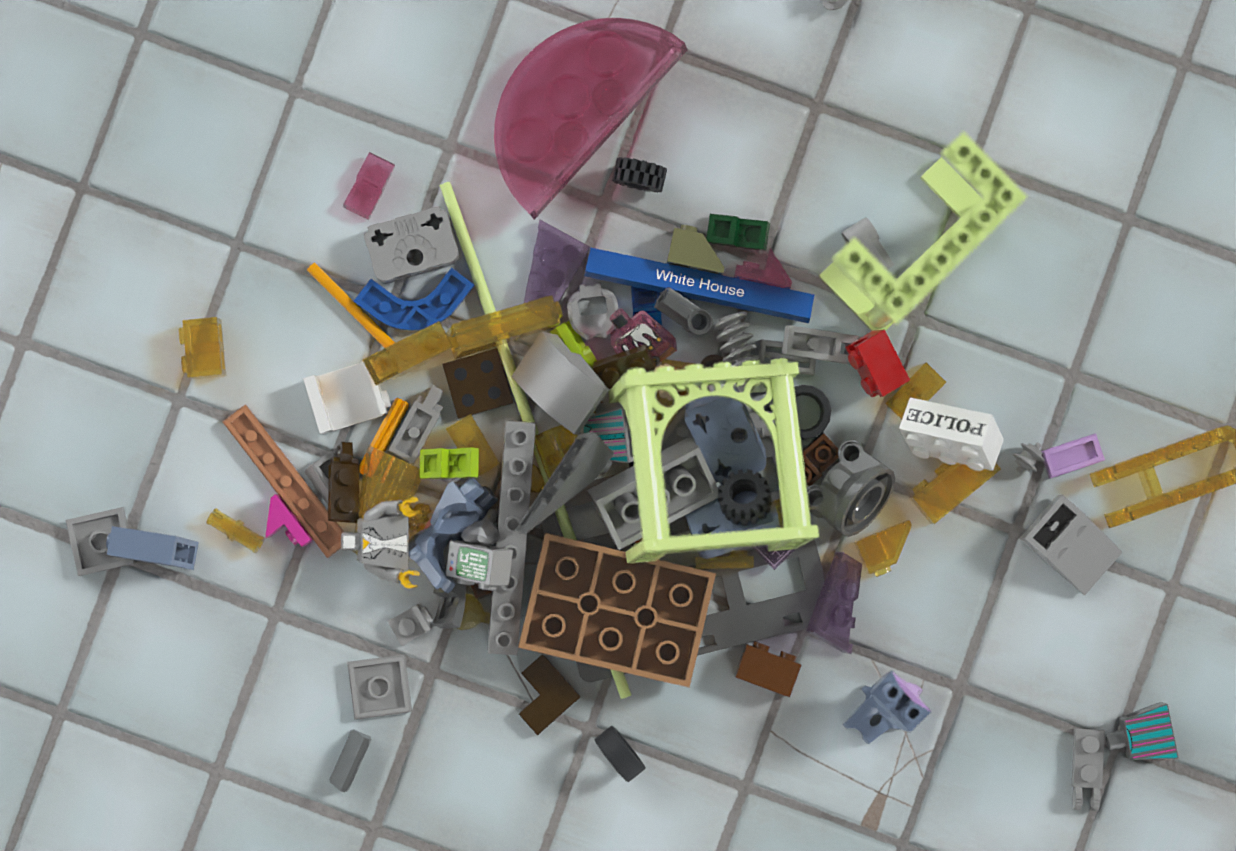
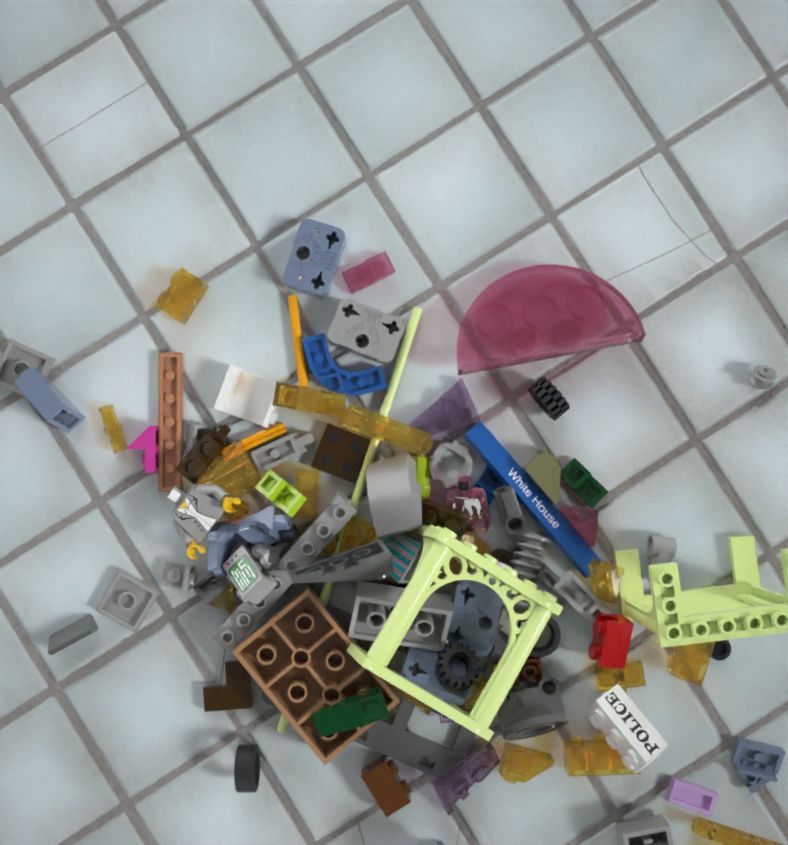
camera: 35 degrees right, 0 degrees up
(314, 208) = (322, 260): none -> sand blue axle
(675, 617) = (351, 712): none -> dark green slope
(828, 308) = (605, 580): none -> clear yellow slope
(967, 320) = (690, 661): none -> clear yellow brick
(990, 292) = (721, 650): none -> black tile
(1028, 457) = (662, 777): light grey wheel -> none
(1110, 374) = (756, 762): none -> sand blue slope

